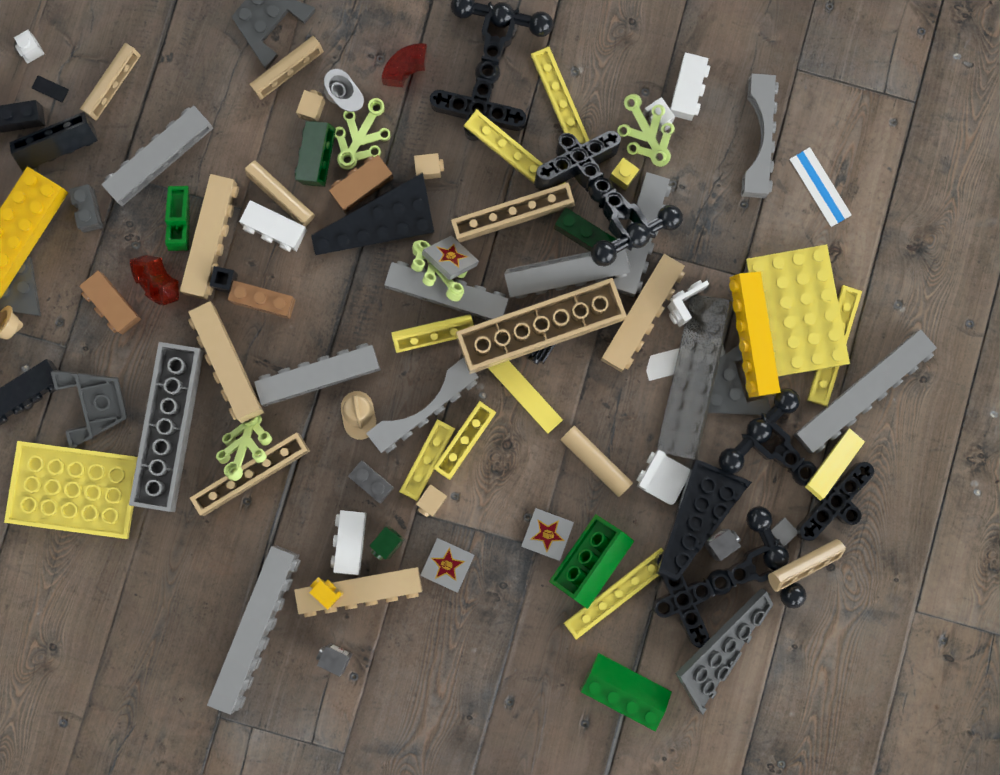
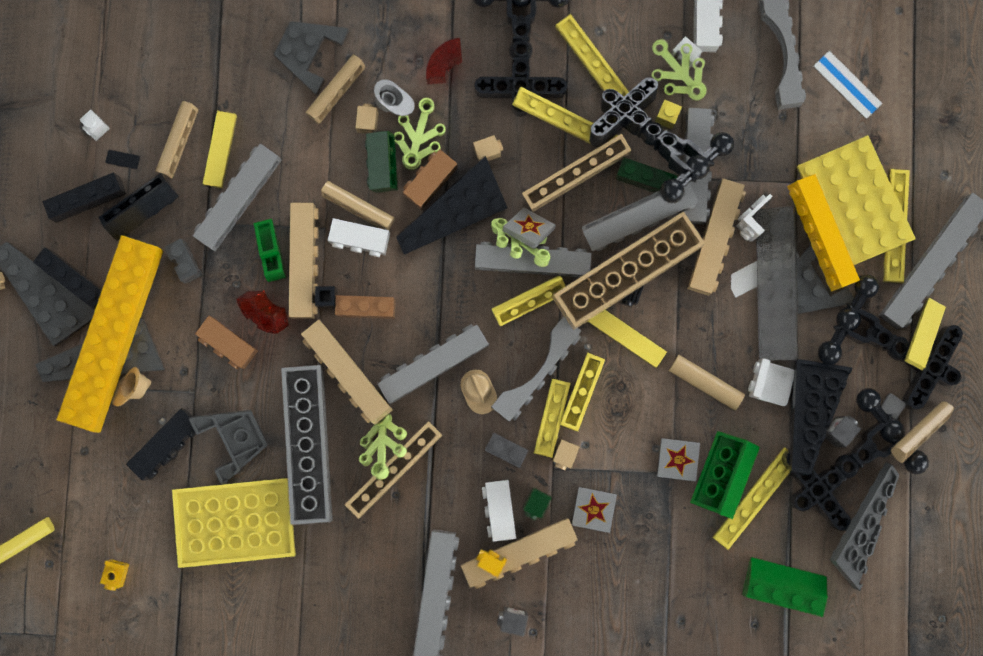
camera: 10 degrees left, 0 degrees up
(152, 102) = (219, 149): none -> light yellow tile

